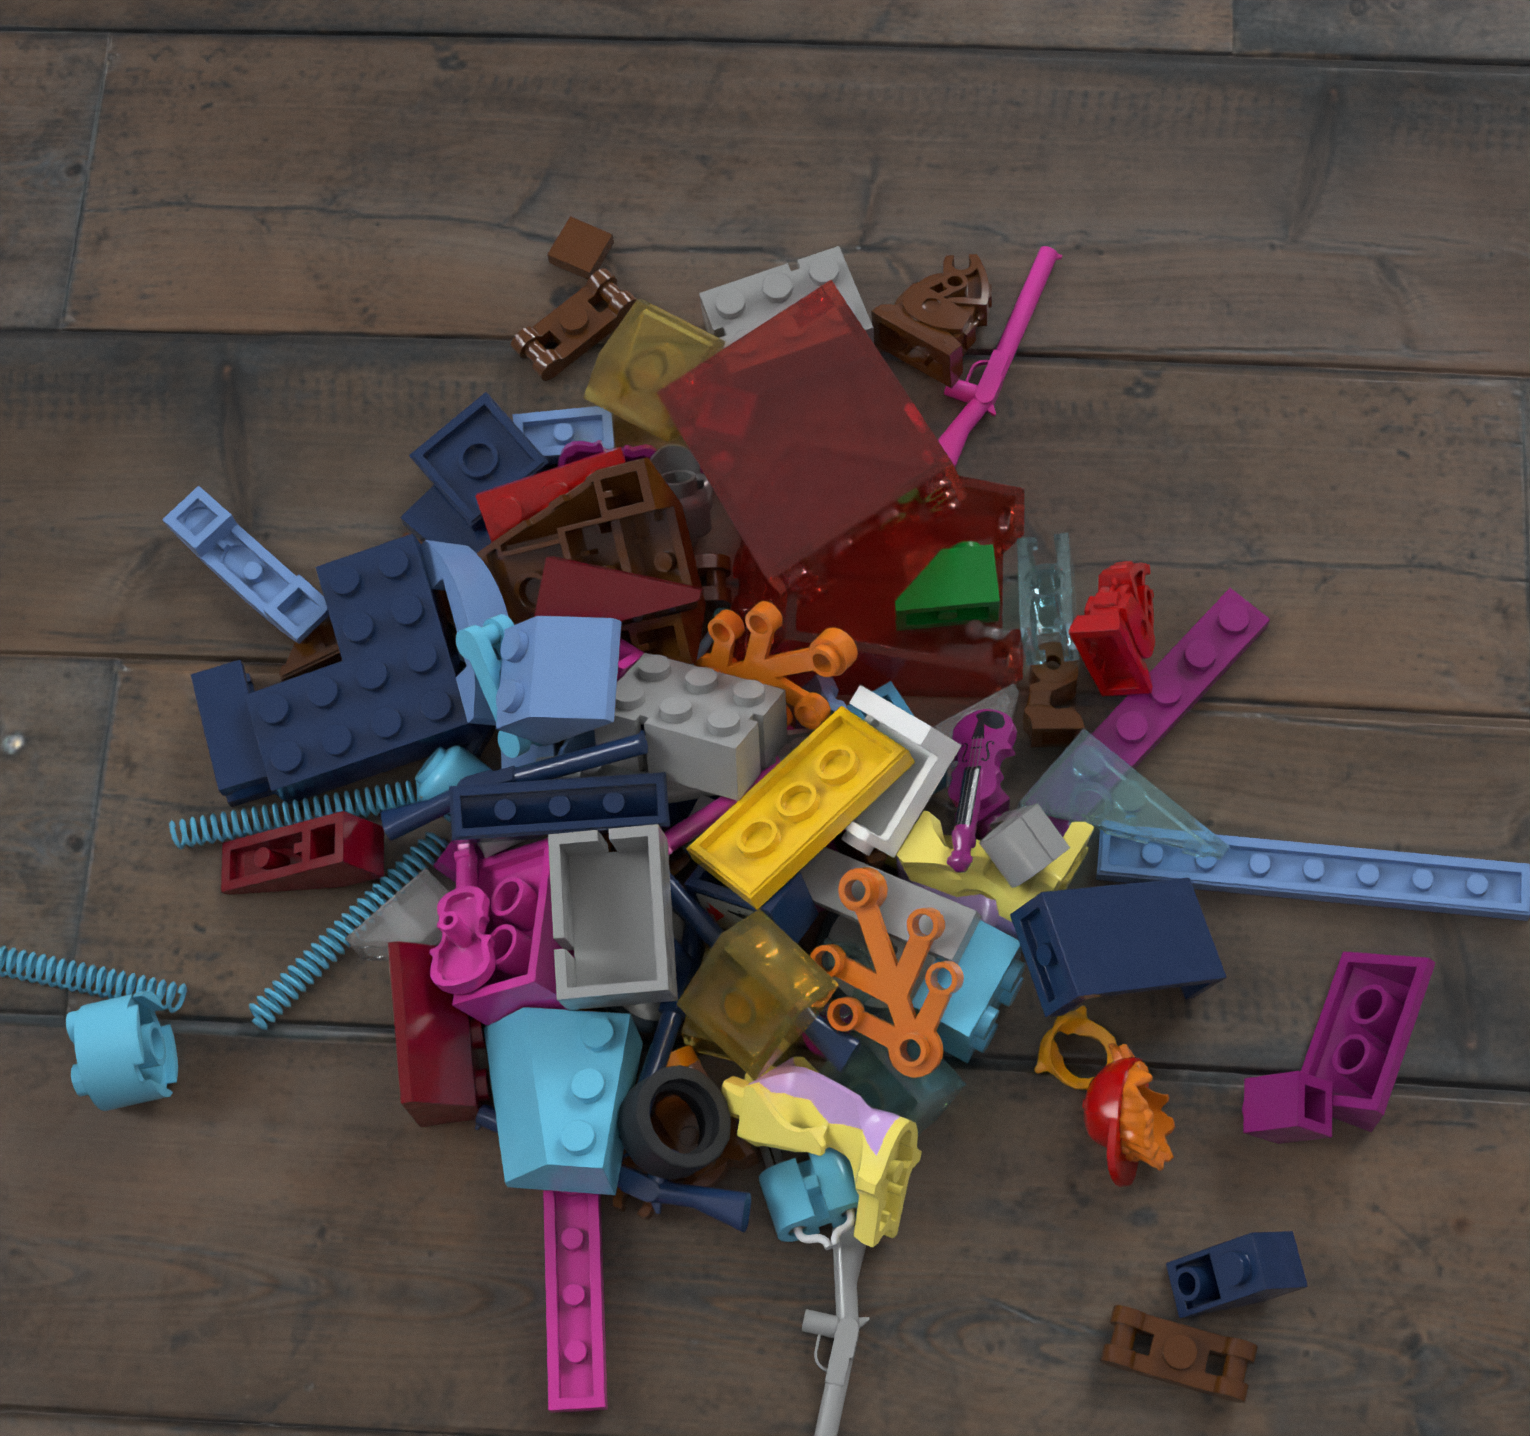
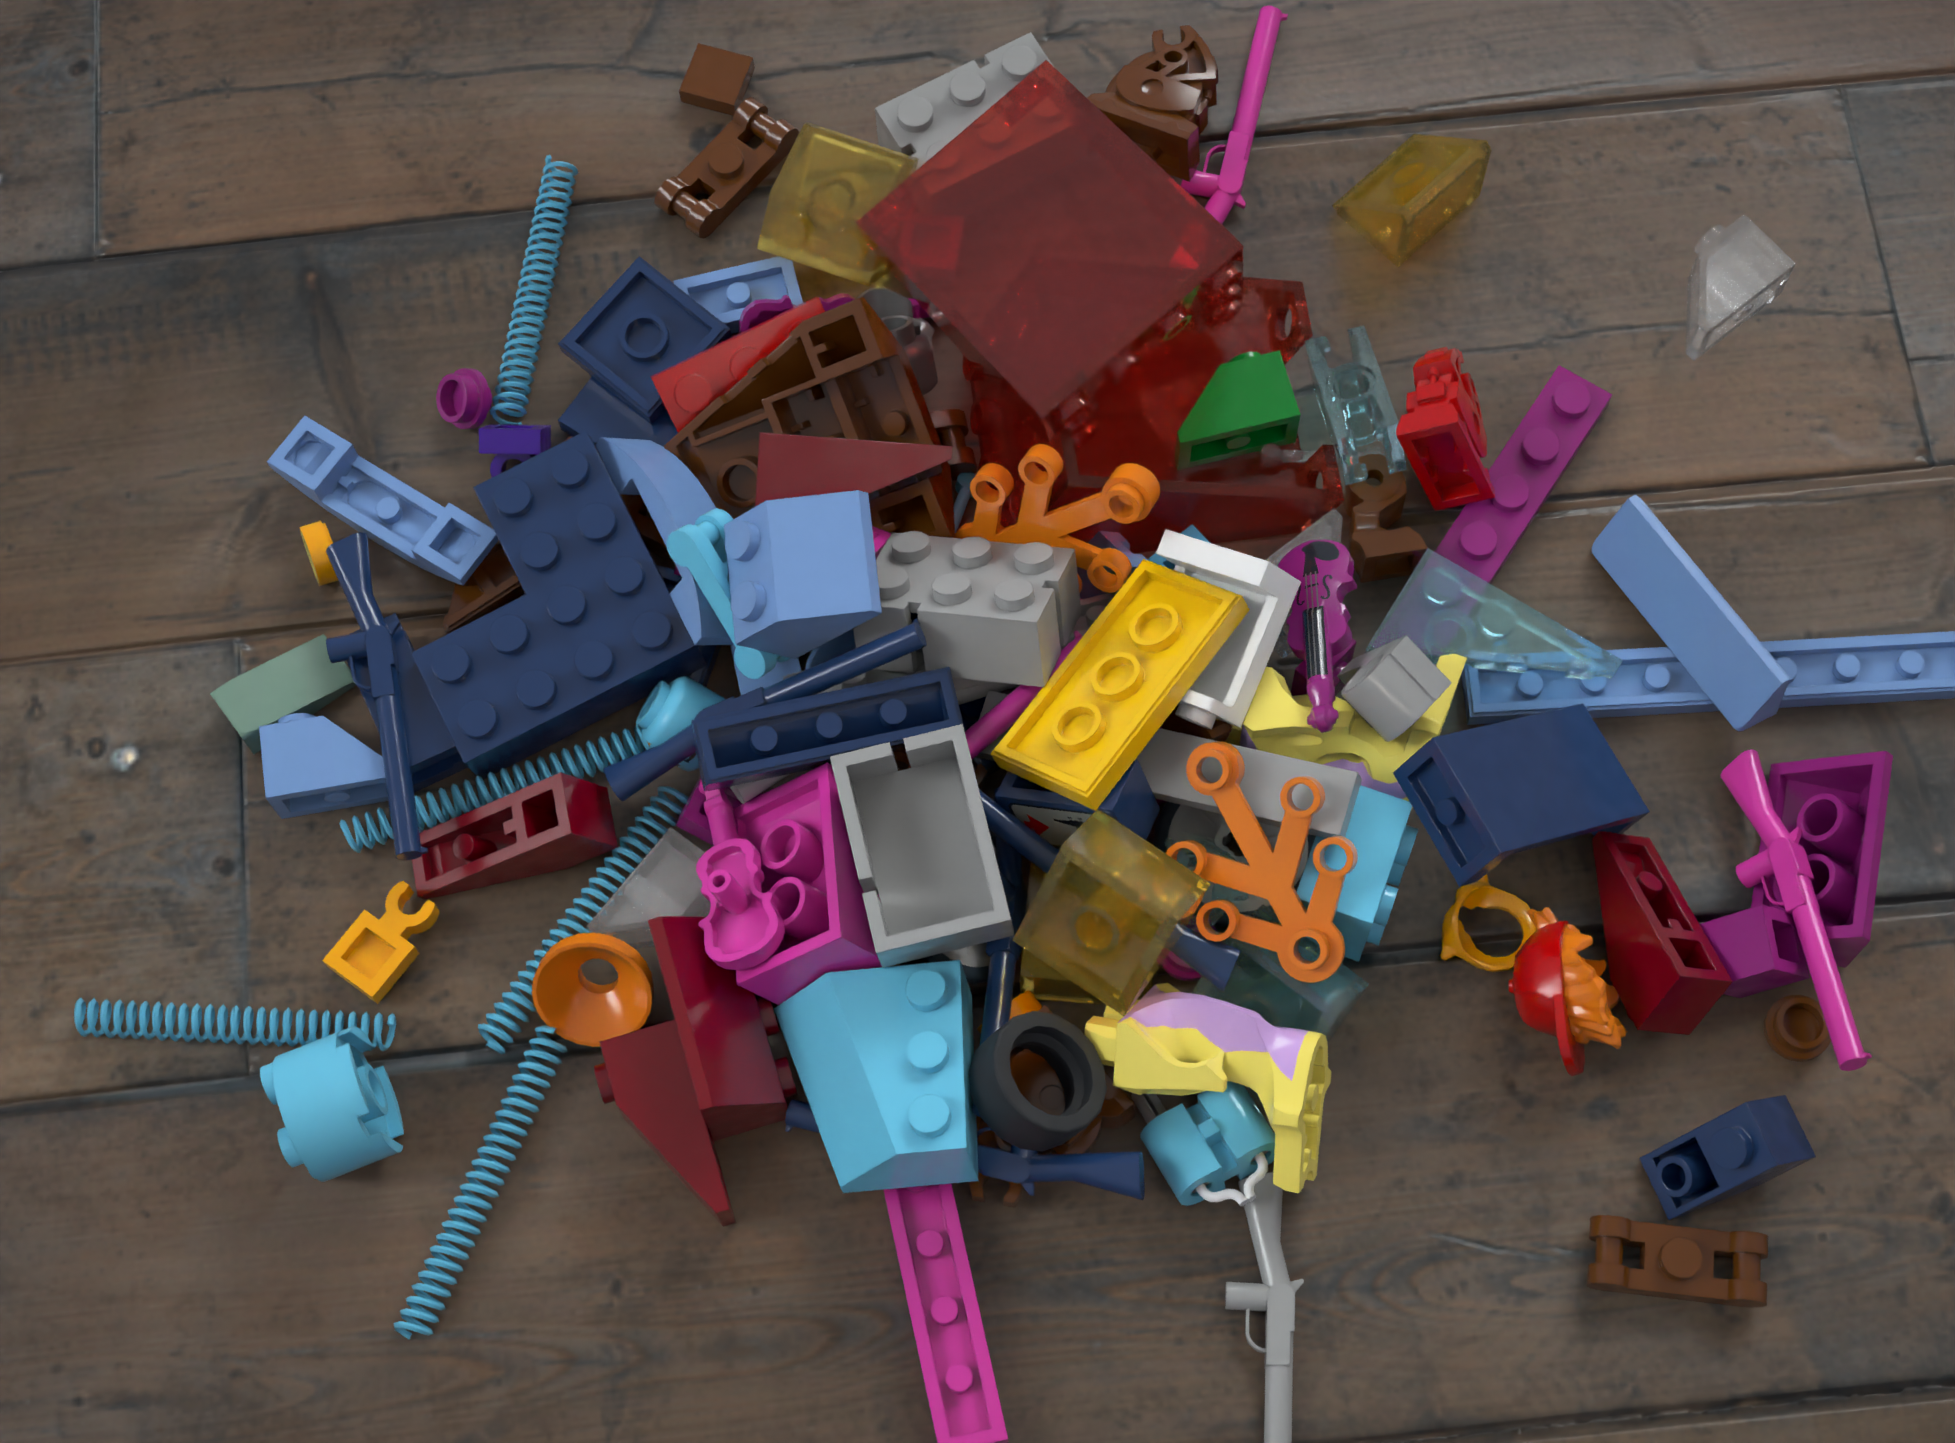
camera: 15 degrees left, 0 degrees up
(143, 709) = (286, 685): none -> sand green slope
(161, 776) = (317, 767): none -> medium blue slope
(180, 931) = (377, 950): none -> light orange plate
(193, 600) = (316, 540): none -> light orange tile
(221, 686) = (376, 642): none -> dark blue piece
(227, 1134) = (470, 1198): none -> medium azure piece
(328, 488) = (464, 398): none -> magenta plate
(331, 1001) = (586, 1010): none -> orange piece
(360, 530) = (513, 442): none -> dark purple tile
(371, 1080) = (657, 1098): none -> dark red slope
(395, 433) = (528, 307): none -> medium azure piece
(1138, 424) = (1415, 193): none -> clear yellow slope
(1209, 1084) = (1653, 939): none -> dark red slope
(1294, 818) = (1690, 616): none -> medium blue slope
(1319, 1176) = (1796, 1028): none -> reddish brown plate
(1334, 1042) = (1794, 876): none -> dark pink piece
(1389, 537) = (1731, 281): none -> clear slope

